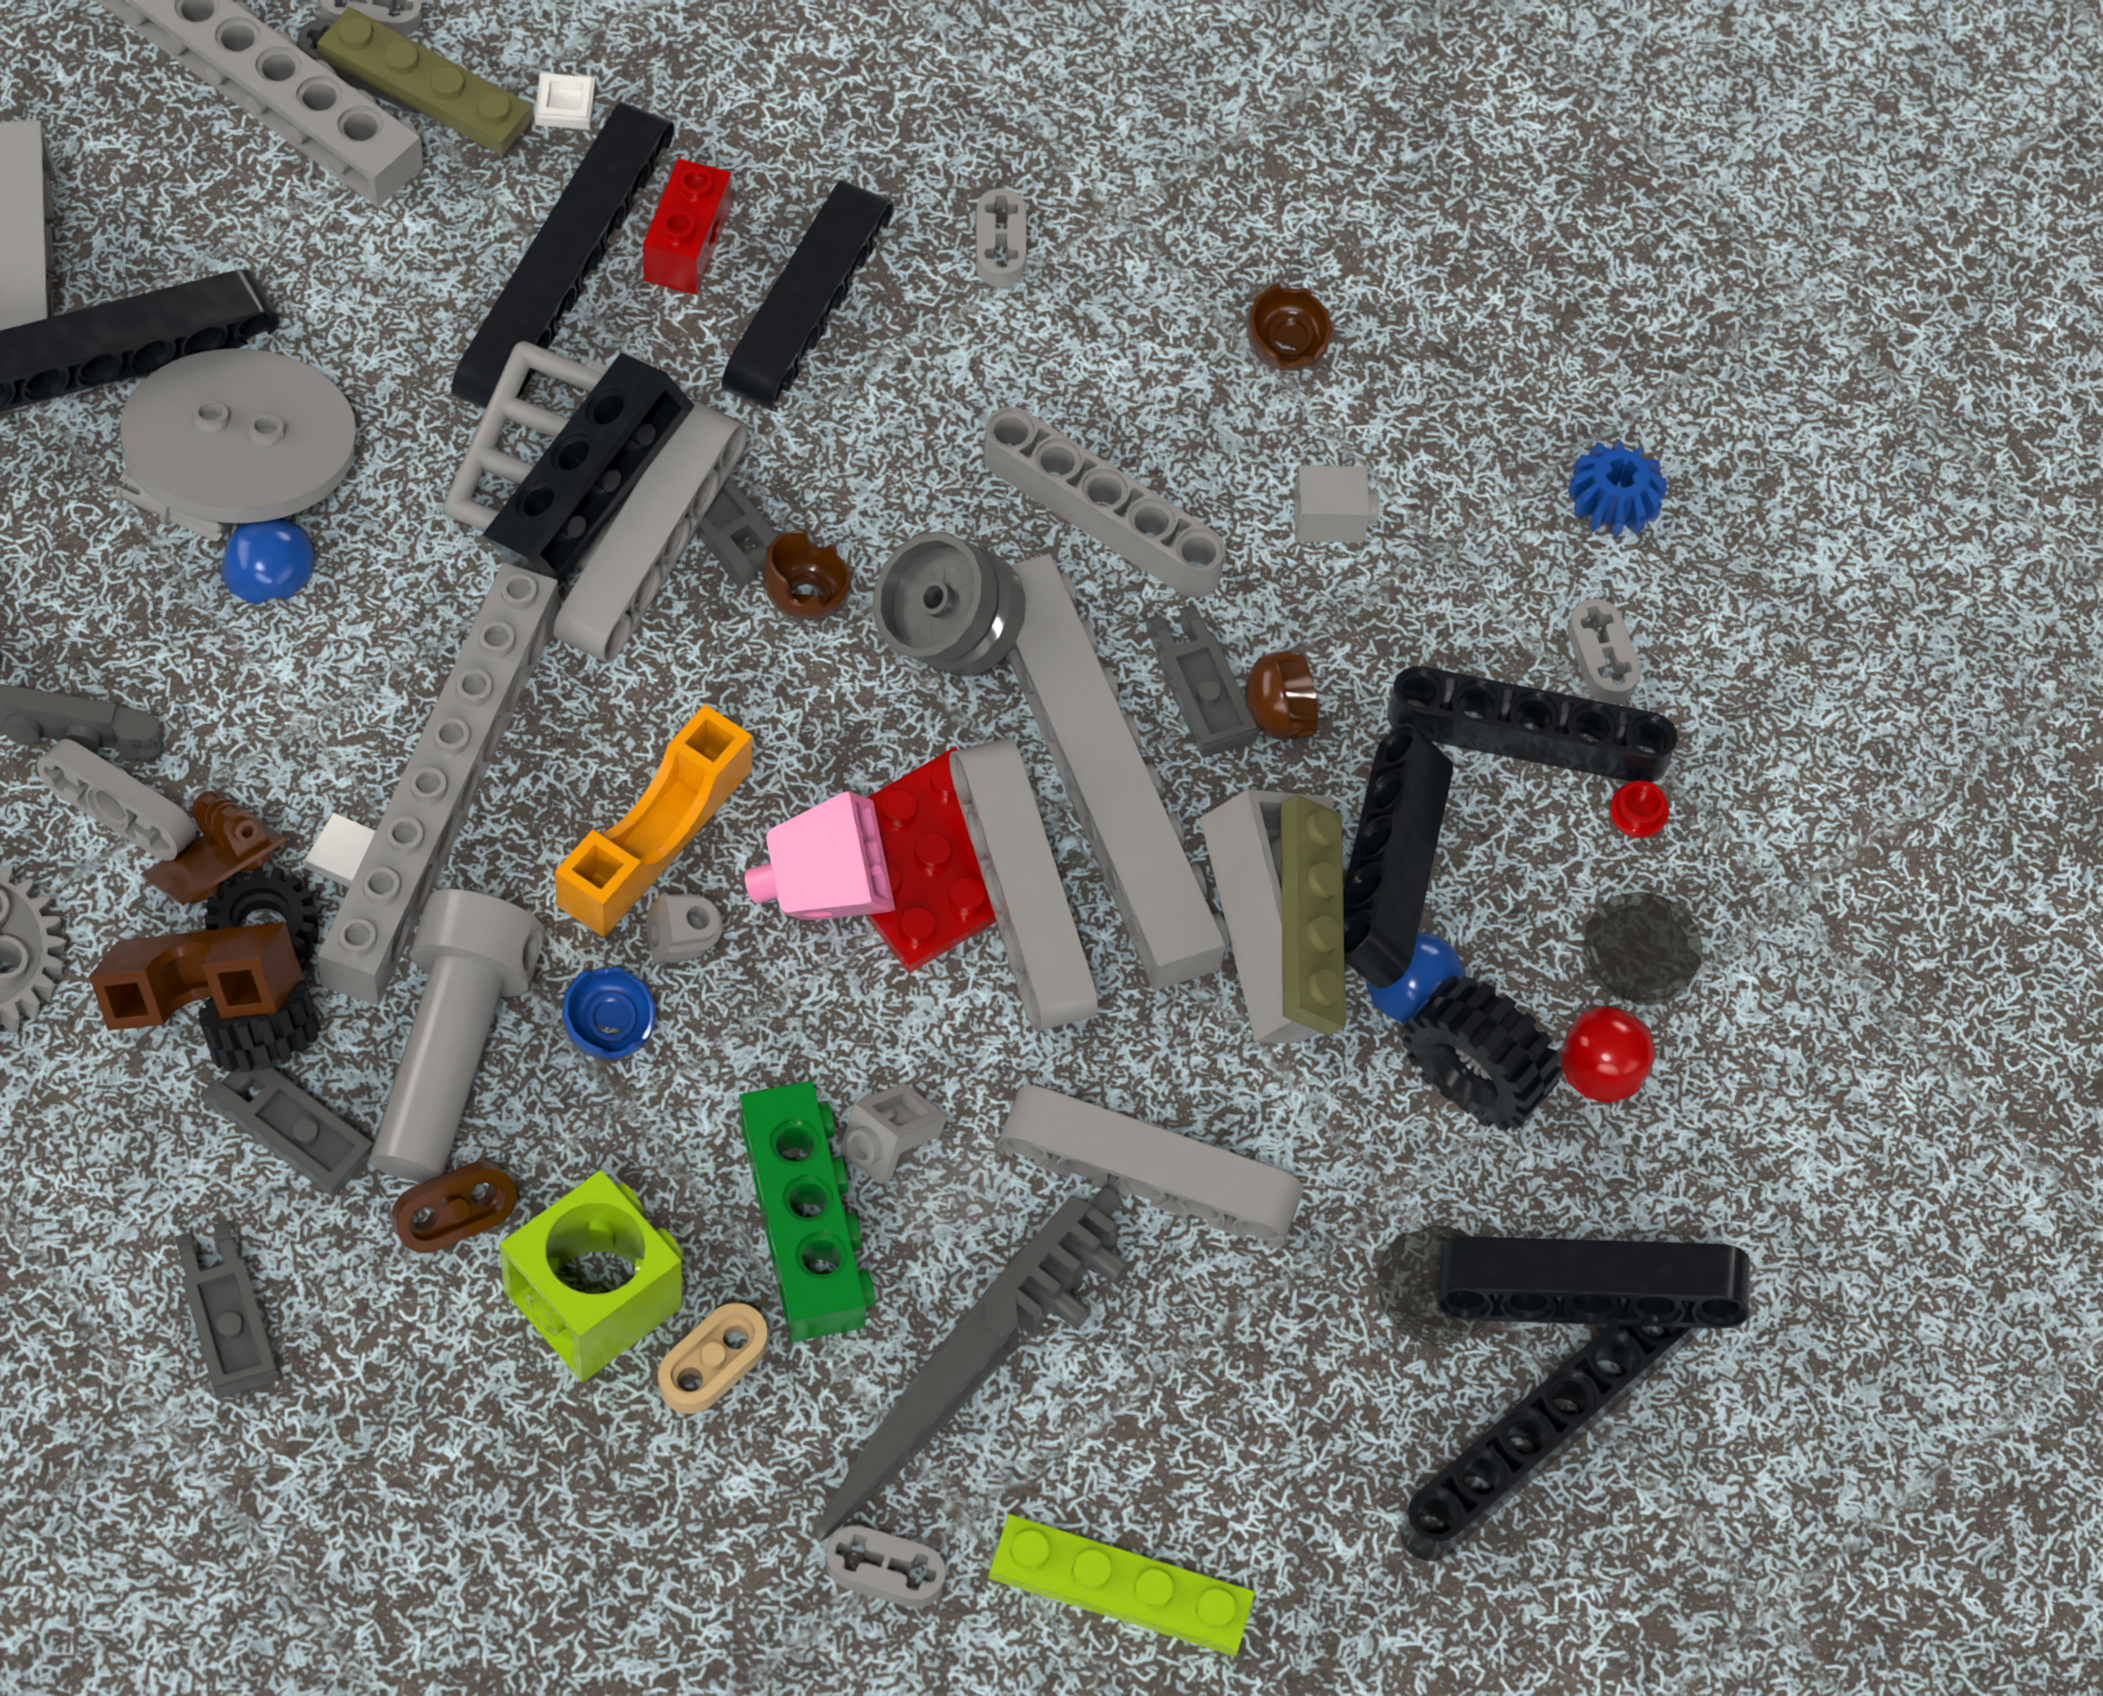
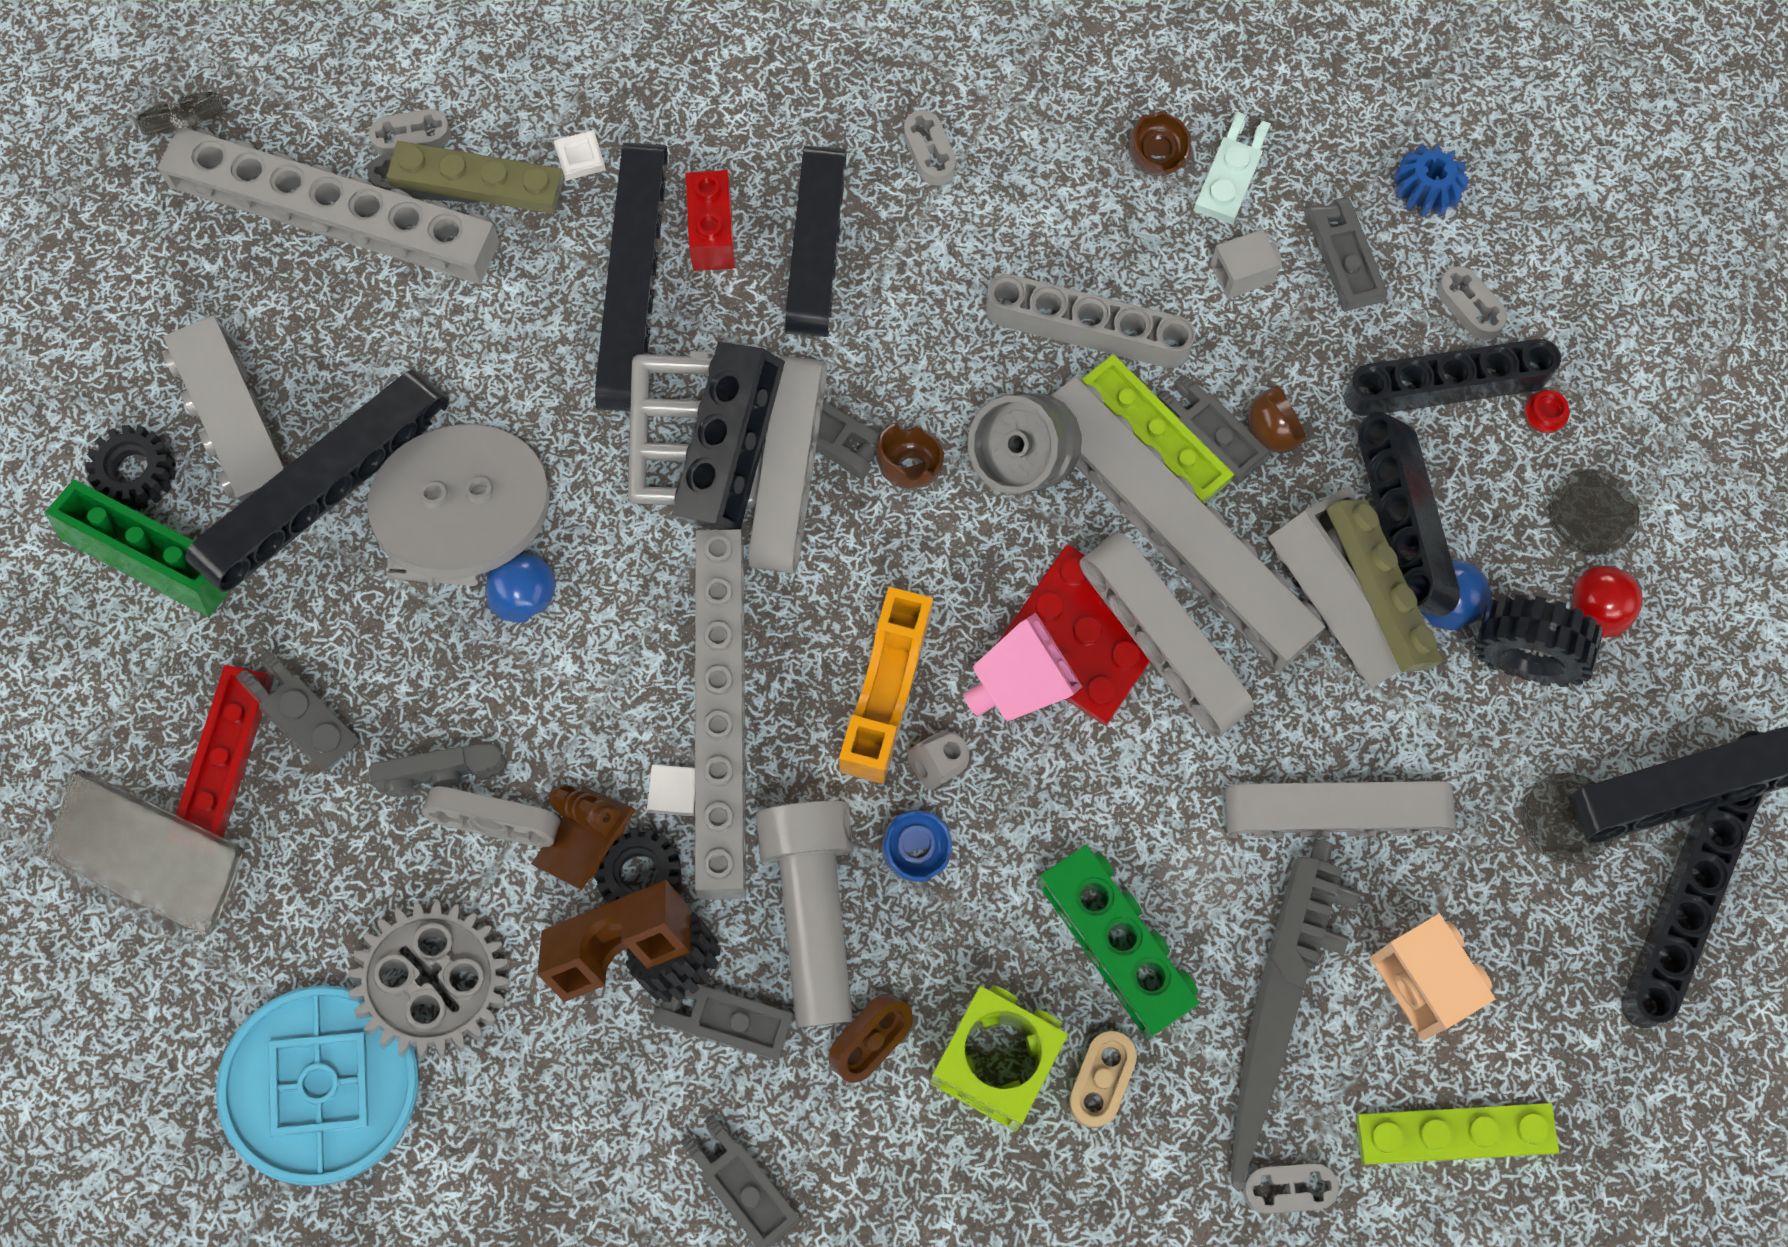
camera: 15 degrees left, 10 degrees up
(887, 1126) = (1150, 854): light grey bracket -> none
(1133, 656) = (1159, 428): none -> lime plate
(1166, 1381) = (1433, 976): none -> light nougat brick
(1370, 393) = (1231, 172): none -> light aqua hinge
(1468, 540) = (1346, 254): none -> dark grey plate

